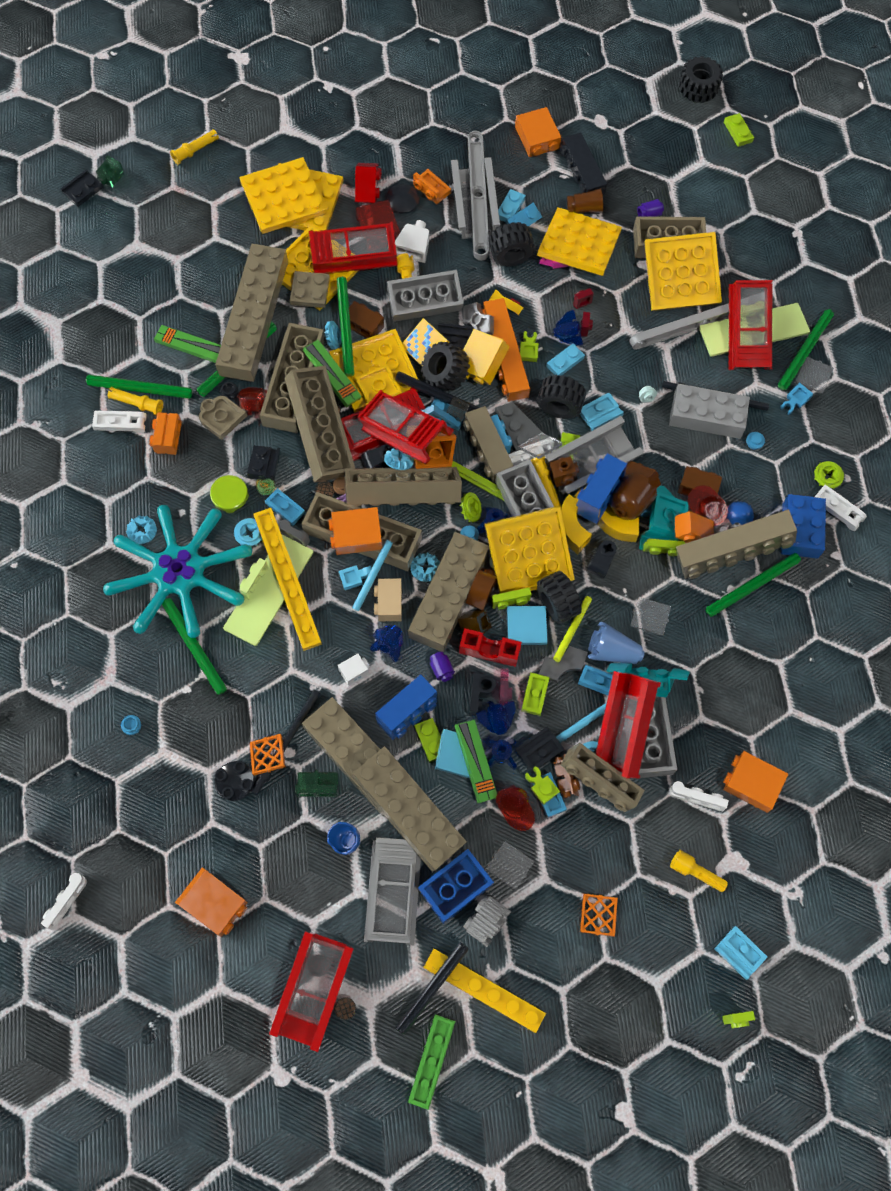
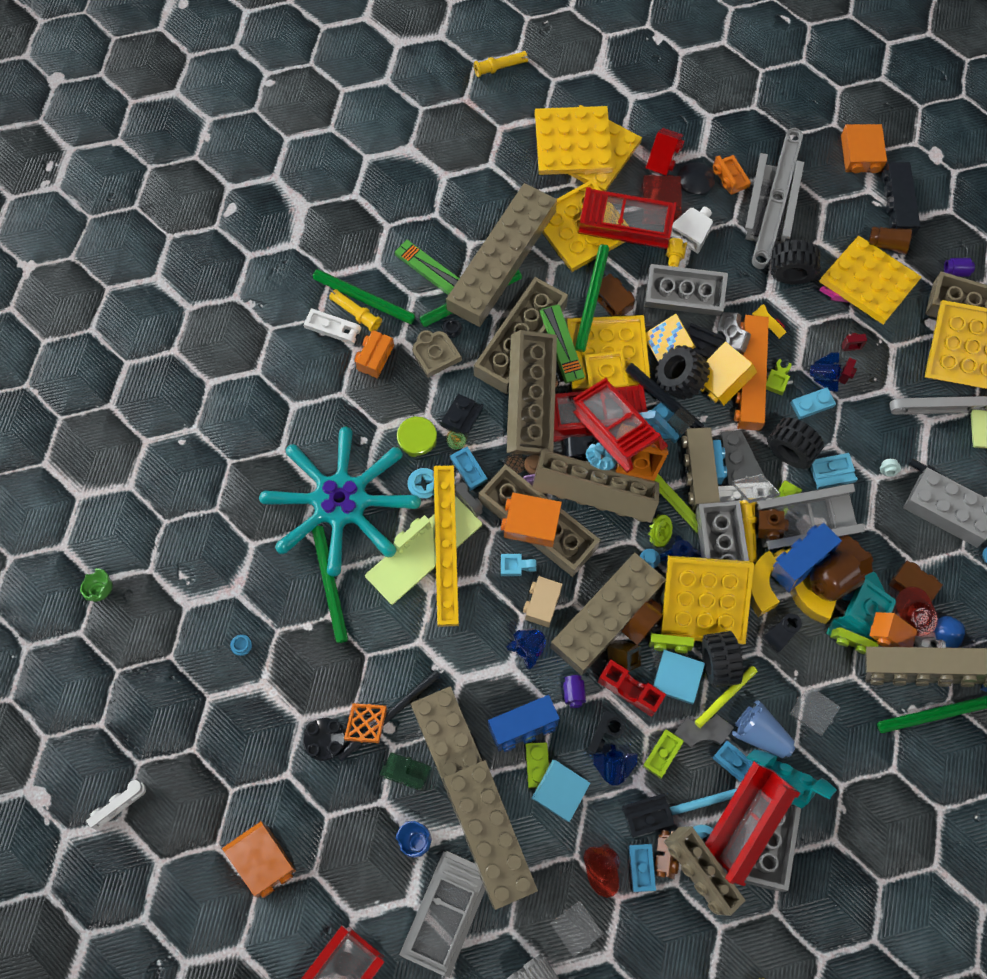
camera: 20 degrees right, 0 degrees up
(82, 188) = (374, 74): black plate -> none
(110, 171) = (407, 66): clear green brick -> none
(141, 537) = (312, 452): medium azure gear -> none
(252, 399) = (472, 345): clear red piece -> none
(309, 289) = (568, 247): dark tan plate -> none
(333, 335) = (576, 302): medium azure gear -> none
(354, 669) = (483, 663): white brick -> none
(372, 575) = (534, 570): medium azure bar -> none
(418, 572) = (583, 581): medium azure gear -> none
(455, 886) = (512, 932): blue brick -> none
(476, 761) = (576, 805): bright green tile -> none
(499, 757) = (605, 811): clear blue brick -> none
(505, 692) = (632, 741): clear pink plate -> none
(511, 205) = (808, 219): medium azure plate -> none
(527, 215) = (820, 236): dark azure plate -> none
(543, 788) = (639, 859): lime plate -> none
(697, 796) = (801, 926): white plate -> none
(755, 781) = (870, 932): orange brick -> none

